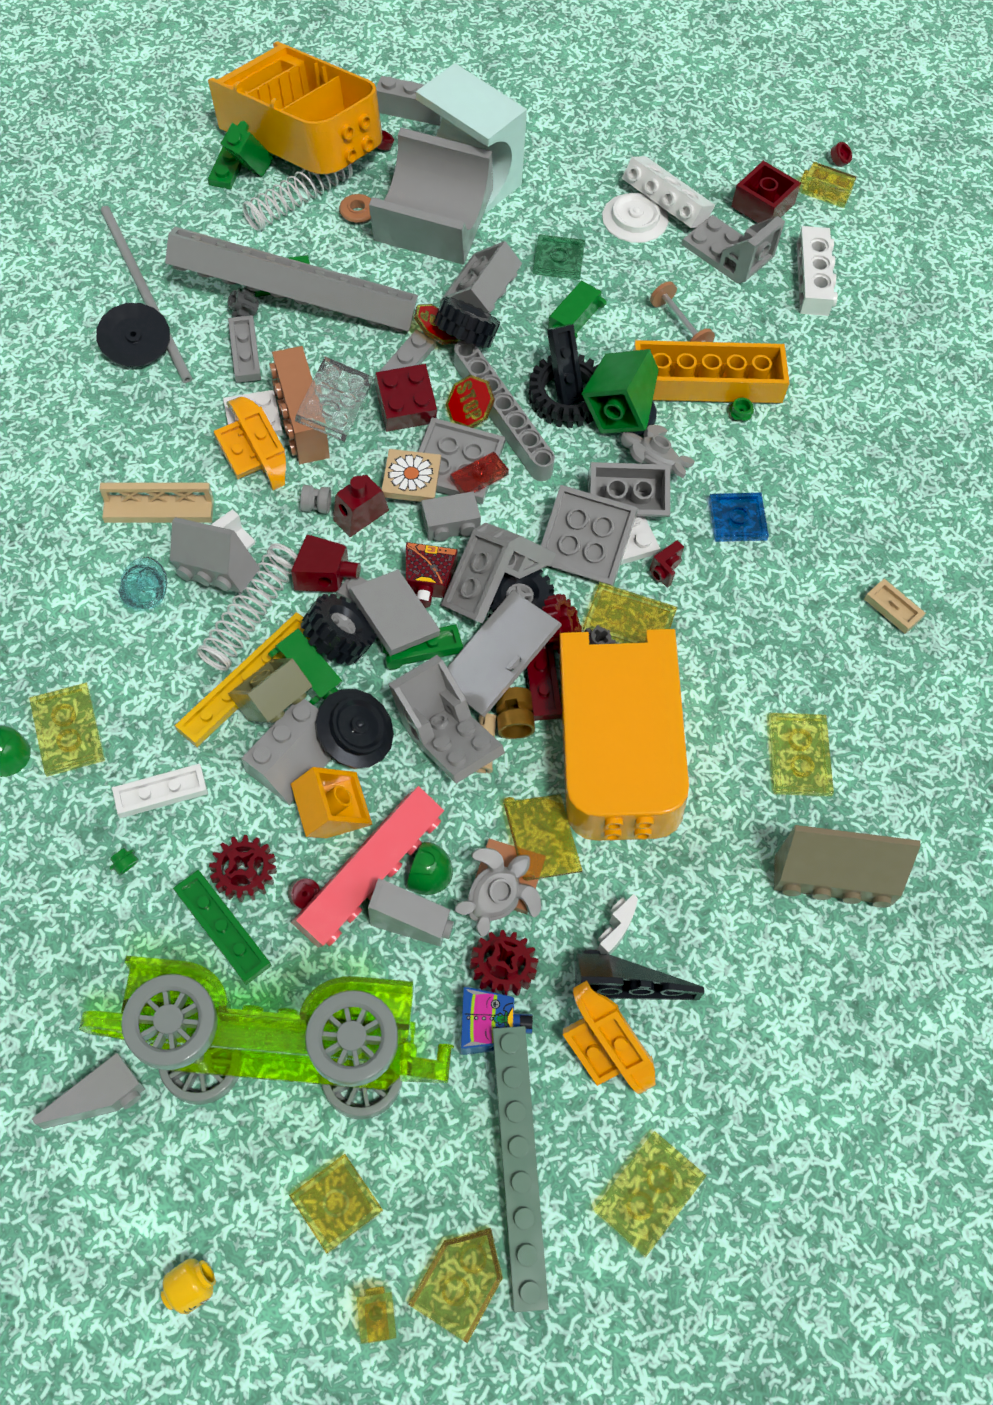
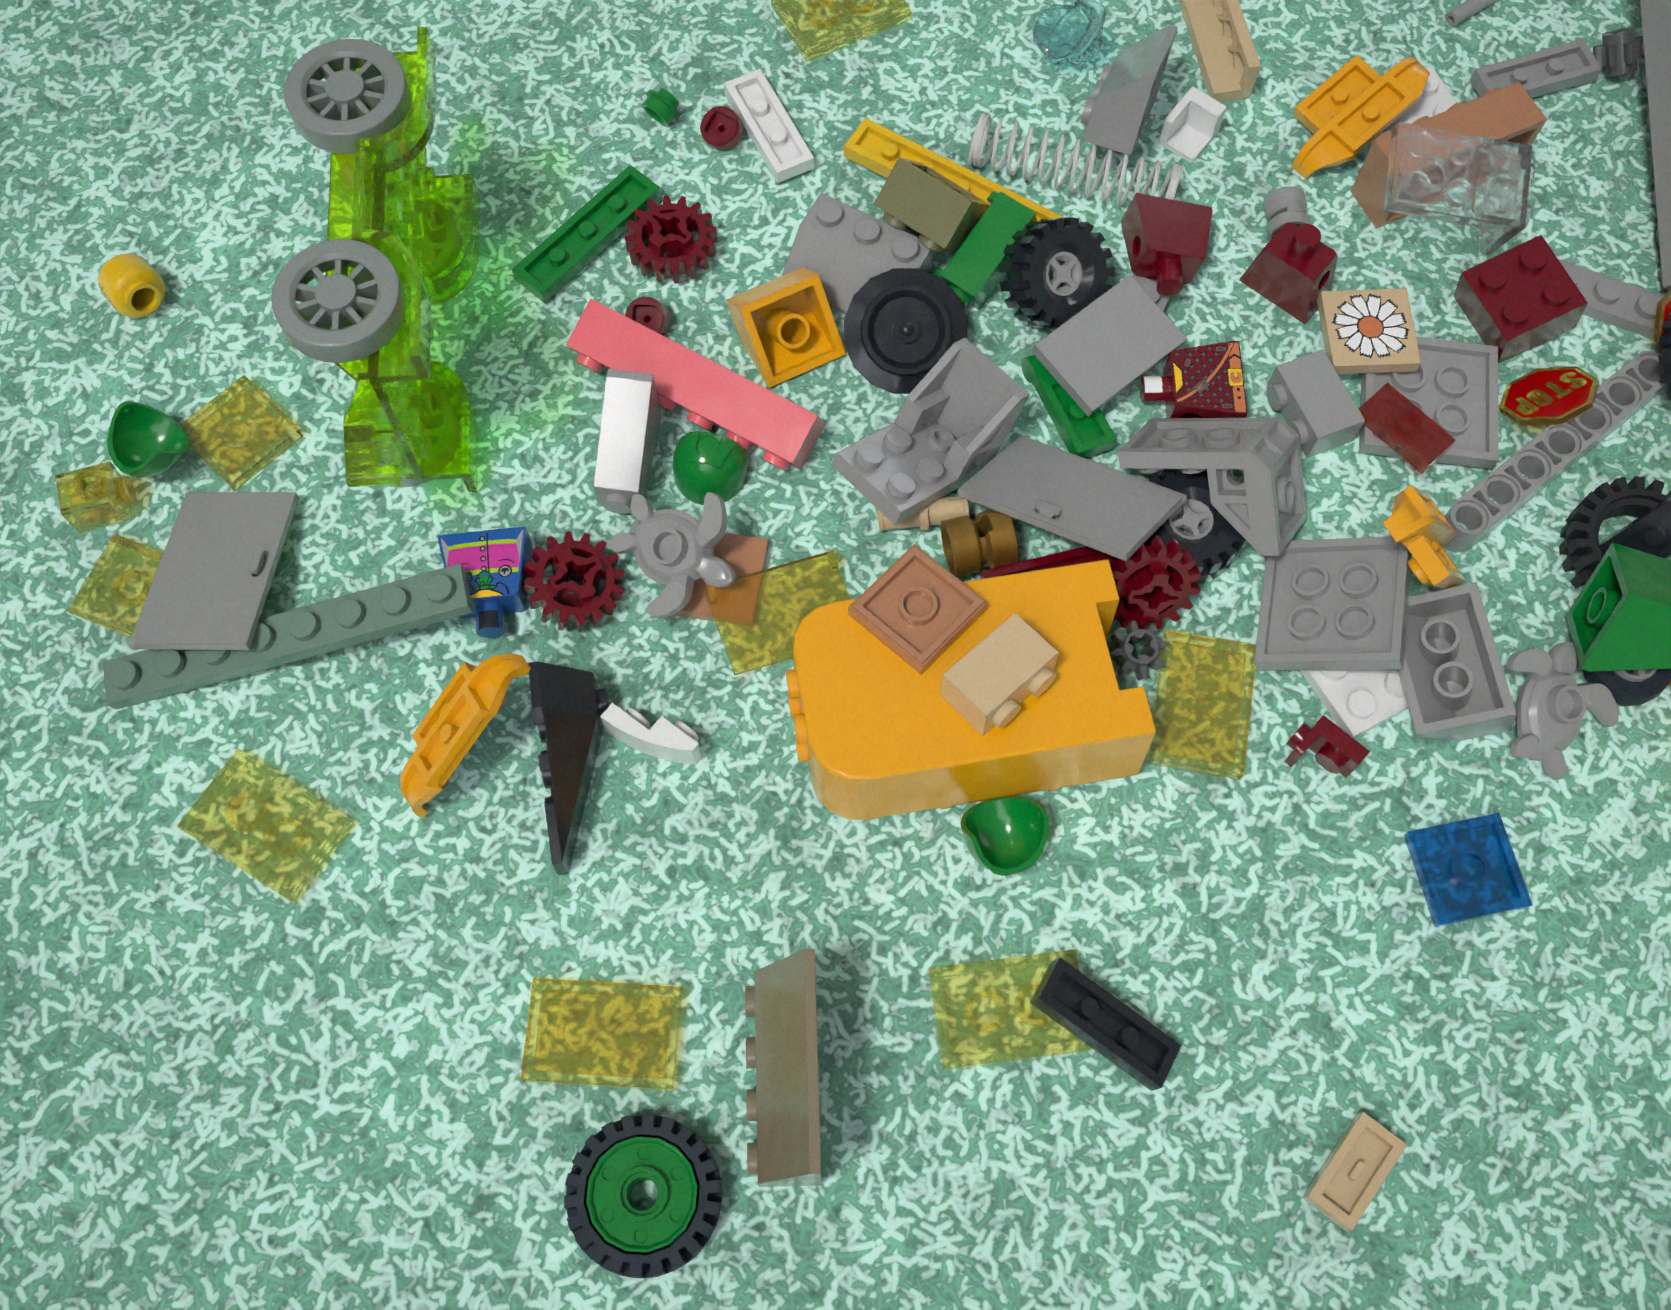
camera: 85 degrees right, 5 degrees up
(153, 822) = (721, 128): none -> dark red tile
(343, 1269) = (145, 440): none -> green helmet
(463, 1226) = (215, 571): none -> light grey container
(565, 475) = (1424, 532): none -> light orange plate
(582, 739) = (917, 609): none -> nougat tile
(637, 698) = (1000, 675): none -> tan brick
(703, 732) = (1006, 833): none -> green helmet
(803, 982) = (602, 1034): none -> clear yellow tile
(816, 703) = (1105, 1024): none -> black plate
(918, 952) = (601, 1188): none -> wheel

